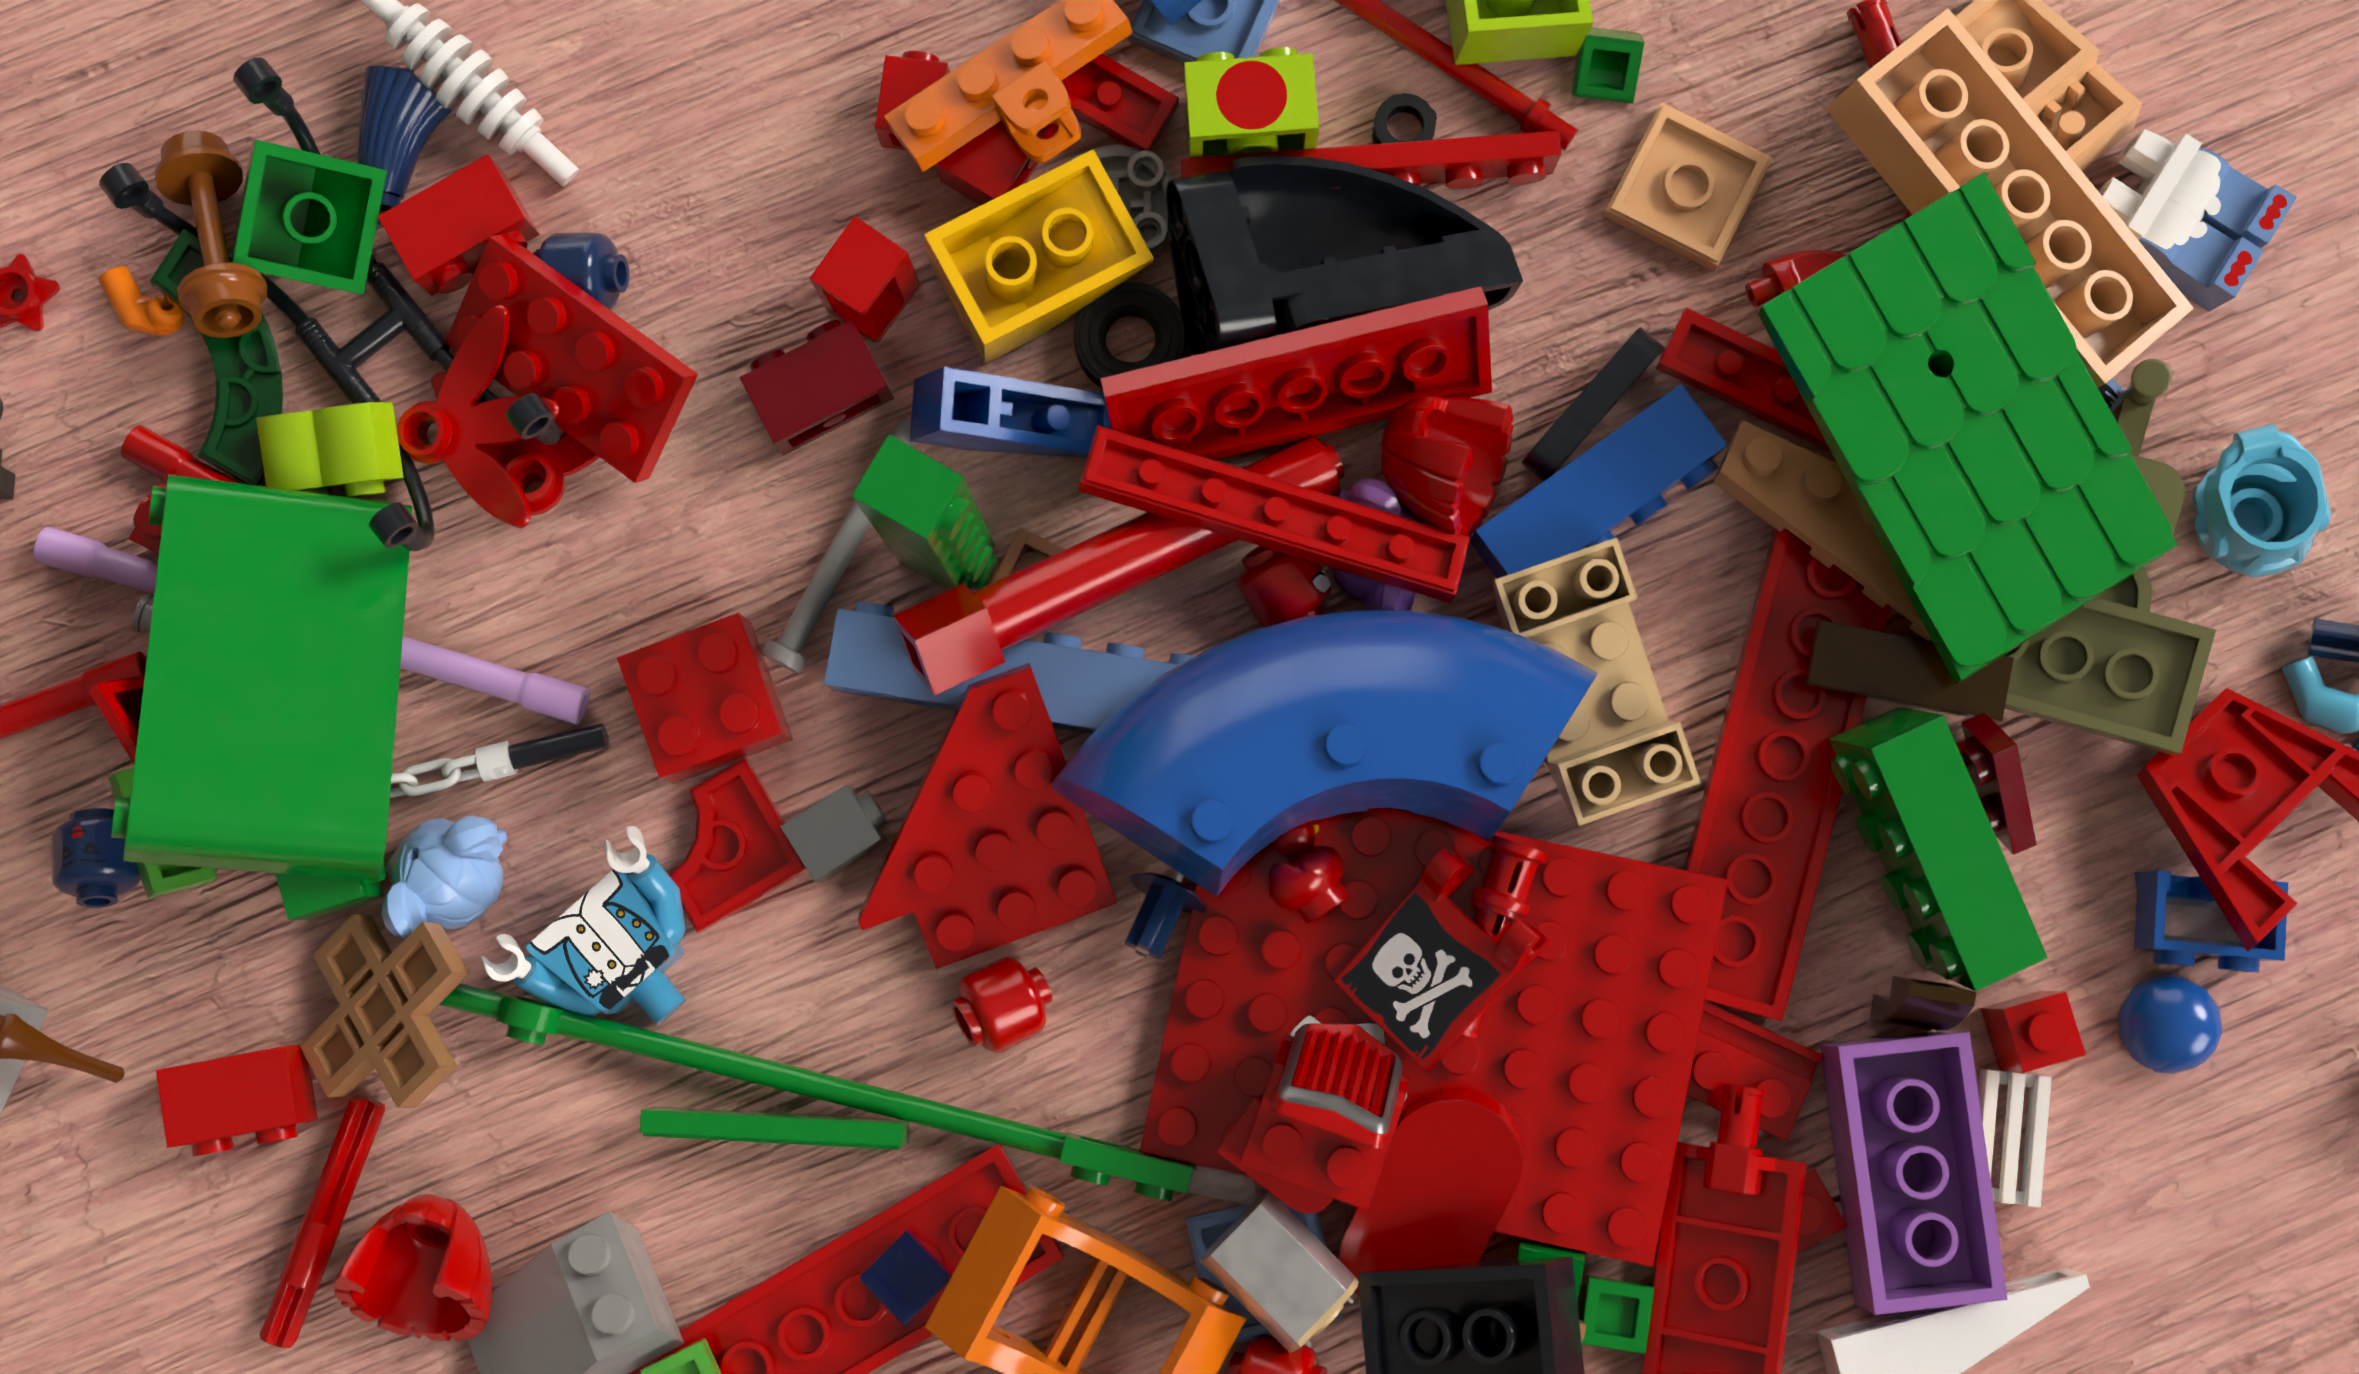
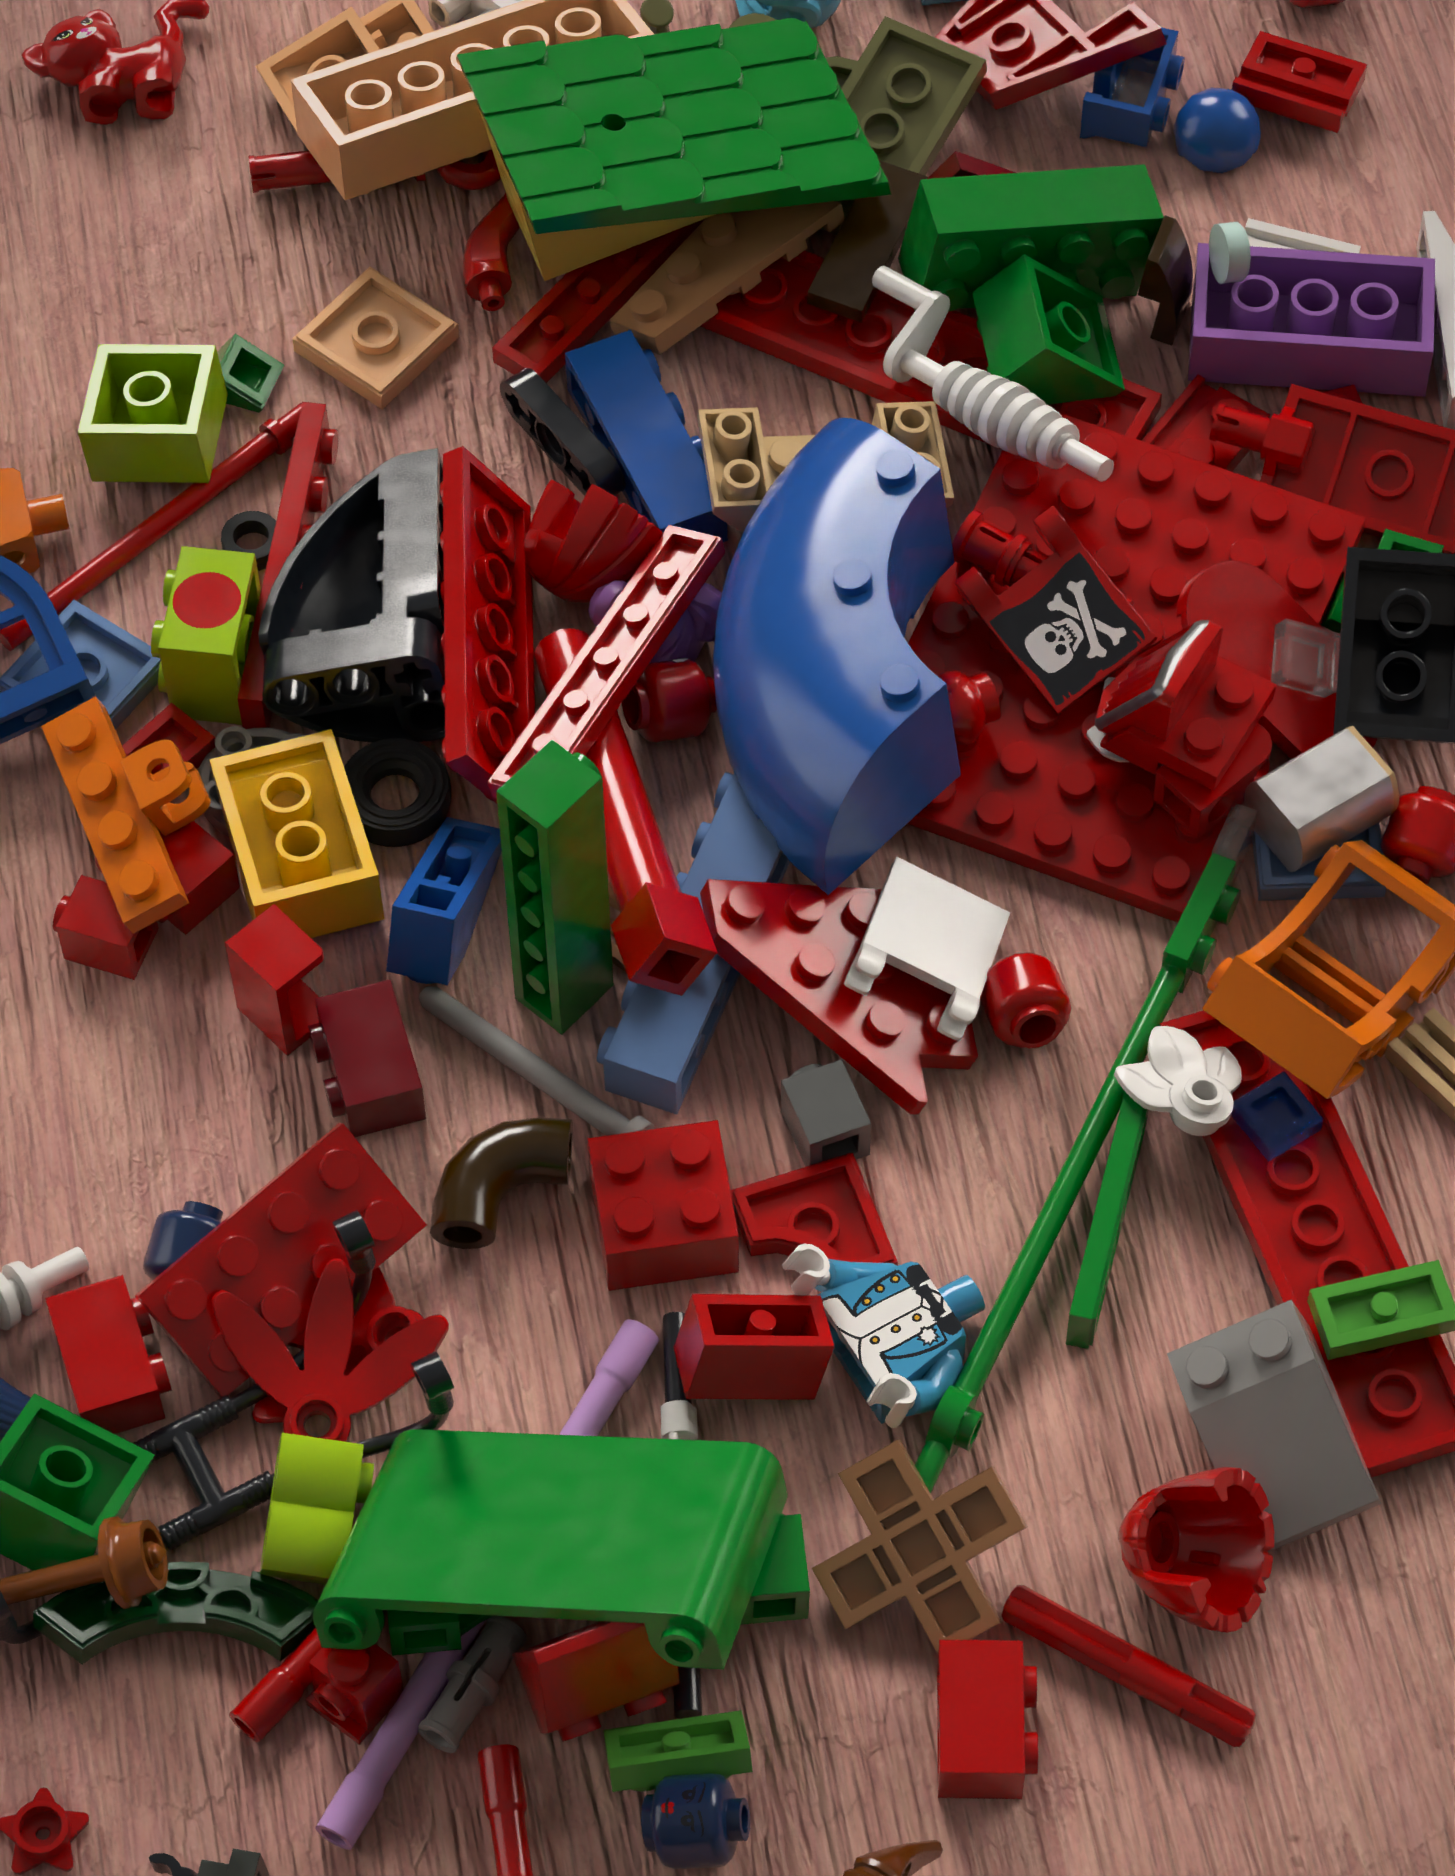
camera: 80 degrees left, 25 degrees down
(137, 311) = (103, 1697): orange arm -> none
(444, 874) = (808, 1472): light blue hair -> none
(554, 816) = (753, 1346): none -> red brick
(718, 526) = (490, 1167): none -> dark brown cylinder
(927, 1171) = (1184, 1081): none -> white plate
(1042, 901) = (934, 936): none -> white flag
(1159, 911) = (949, 846): dark blue piece -> none
(1436, 1231) = (1305, 658): none -> clear tile
(1695, 840) = (986, 403): none -> white piece
(1813, 887) = (1047, 334): none -> green slope
(1947, 1071) = (1229, 252): none -> light aqua tile
(2033, 1031) = (1201, 203): red brick -> none
(2260, 1105) = (1299, 81): none -> red plate

